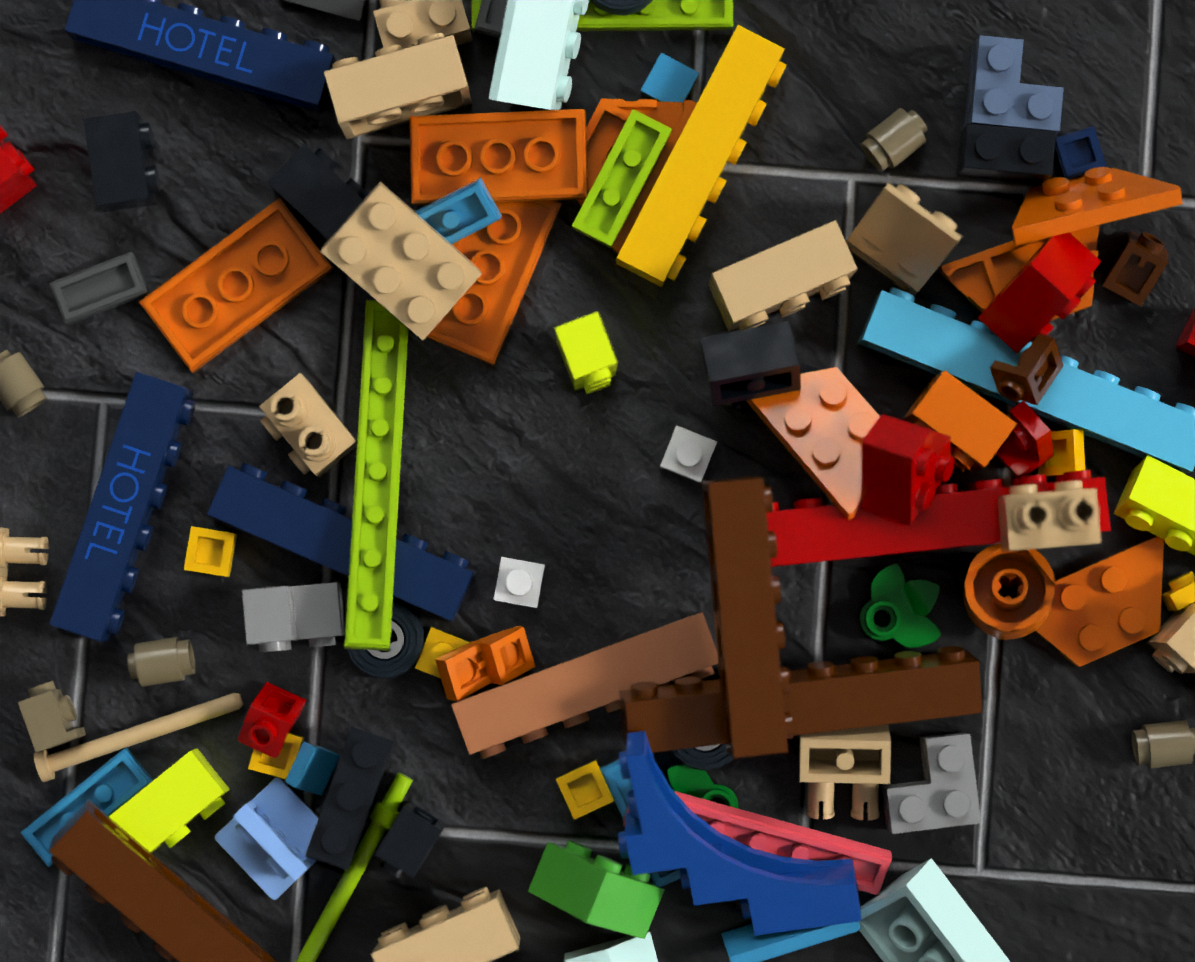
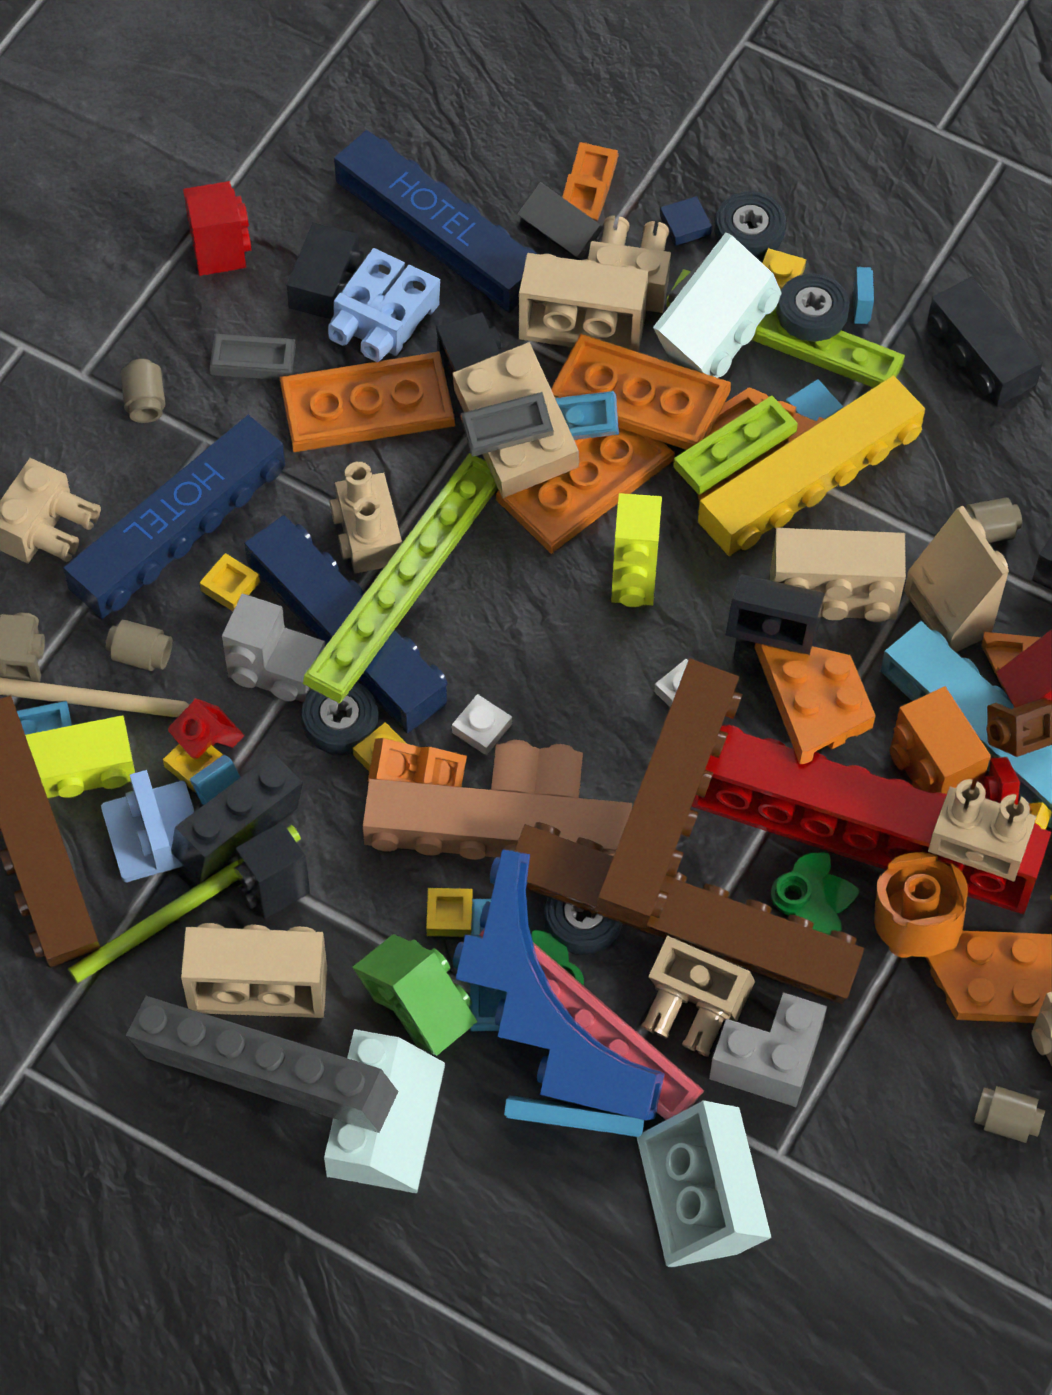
camera: 30 degrees right, 25 degrees down
(195, 191) = (382, 306): none -> light blue hips
(403, 286) = (507, 424): none -> dark grey tile
(598, 617) = (536, 770): none -> nougat brick
(902, 468) = (867, 732): red brick -> none

